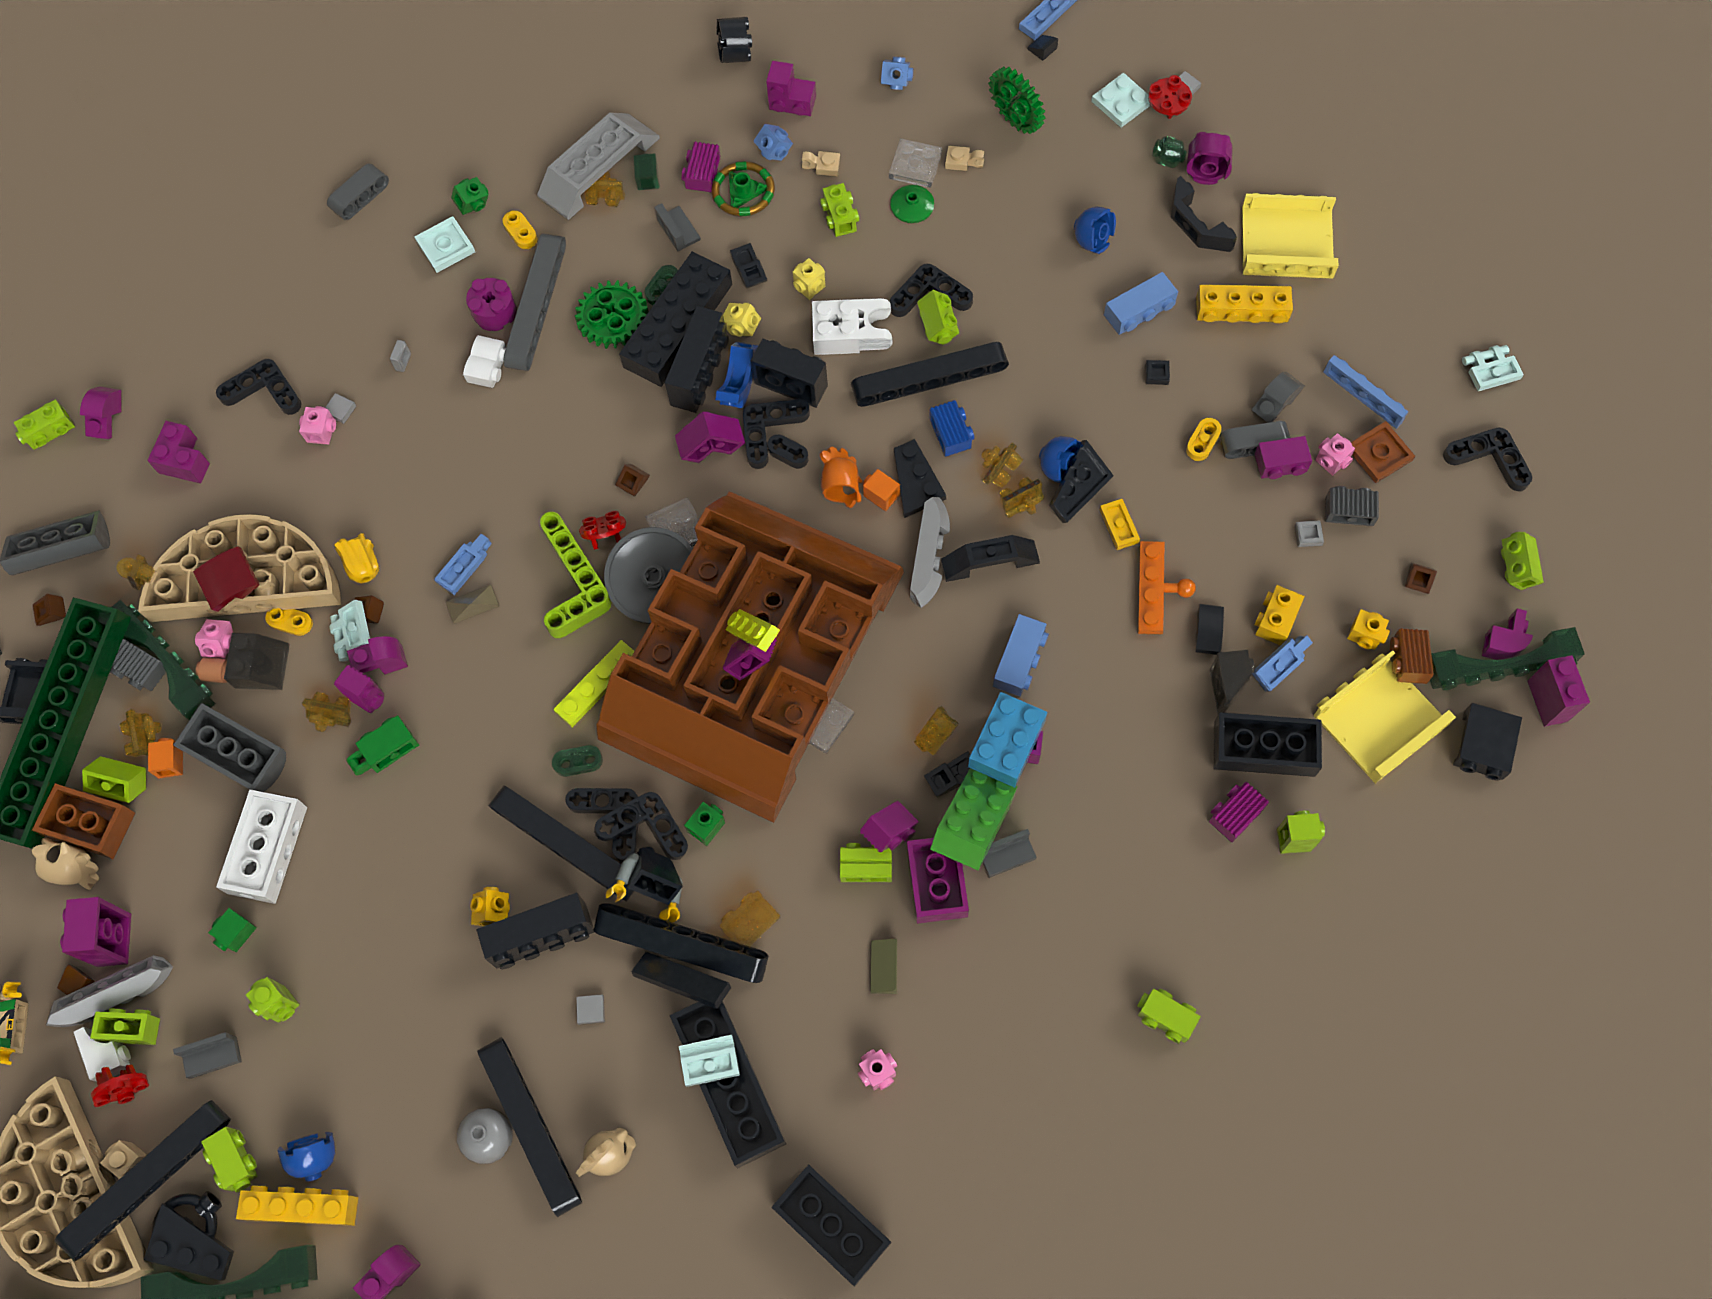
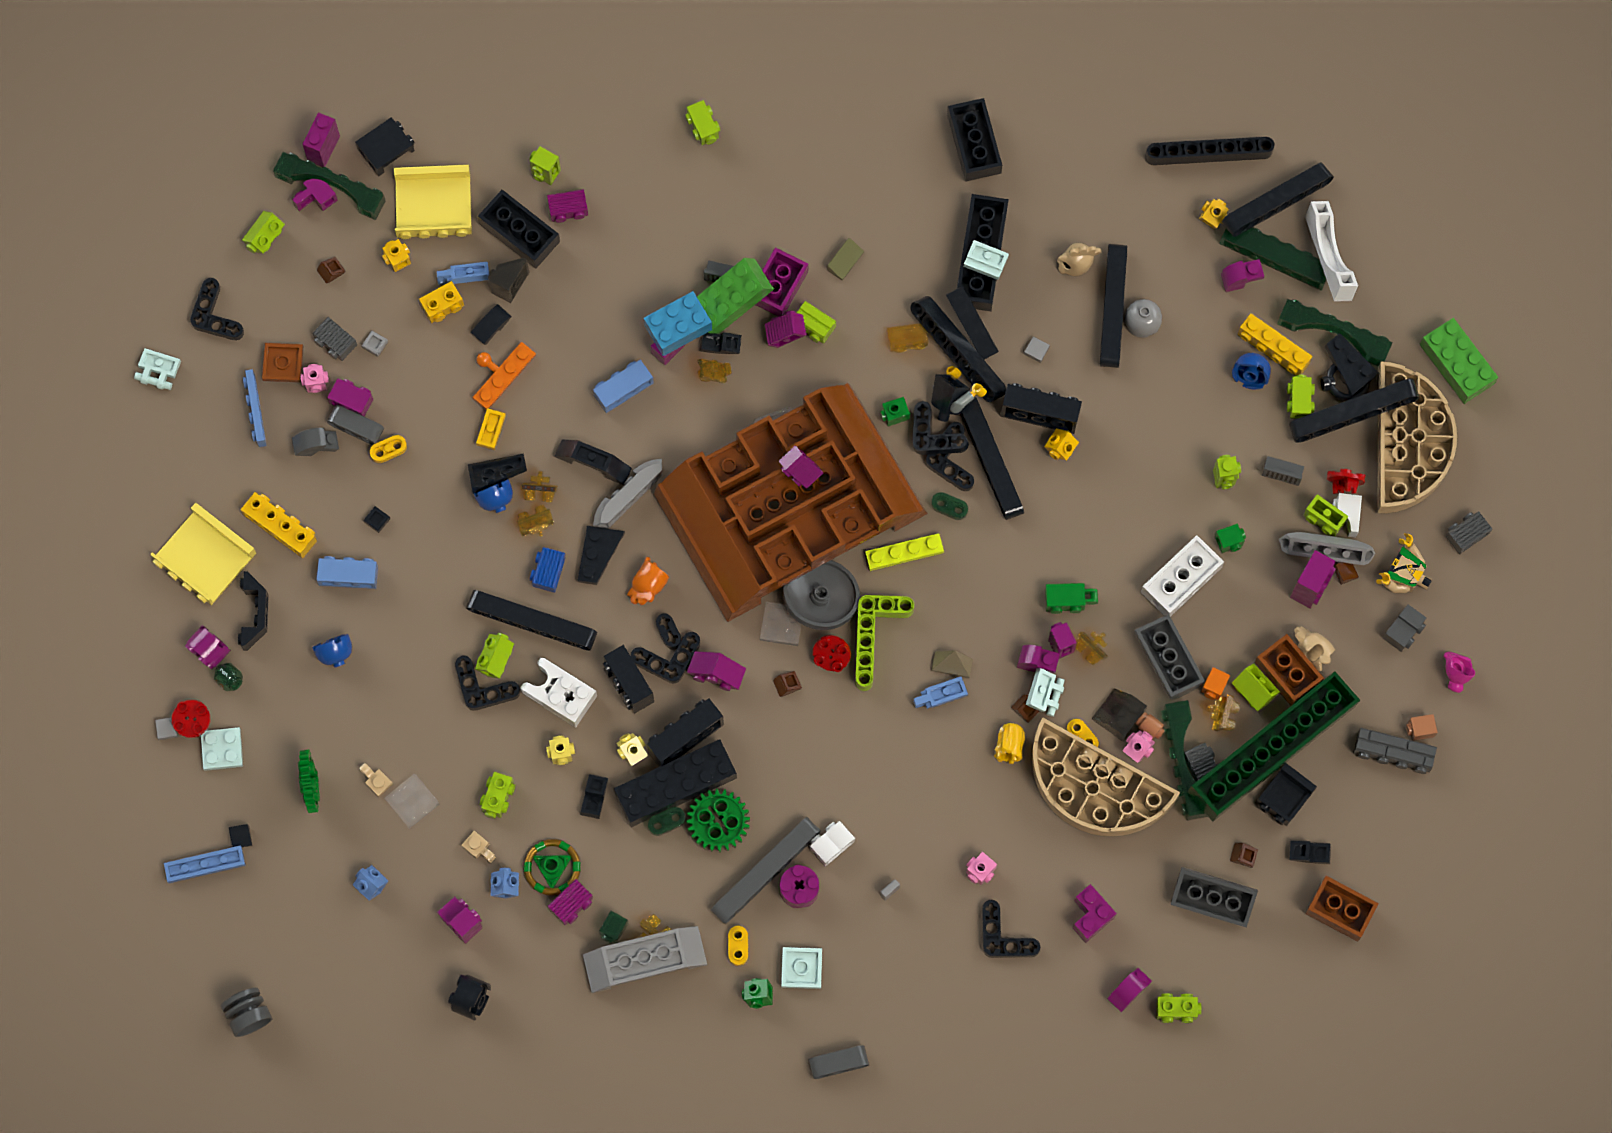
camera: 150 degrees left, 5 degrees up
(122, 1157) = (1363, 438): tan brick -> none
(135, 570) = (1166, 830): clear yellow hips -> none
(226, 578) = (1107, 771): dark red slope -> none
(340, 407) = (957, 880): light grey tile -> none
(676, 226) = (622, 866): dark grey panel -> none
(739, 376) = (666, 704): blue arch -> none
(752, 629) = (792, 466): neon yellow plate -> none
(877, 1080) = (891, 203): bright pink brick -> none
(881, 489) = (627, 557): orange brick -> none
(915, 210) = (443, 778): green dish -> none
(1412, 656) = (384, 222): dark orange brick -> none

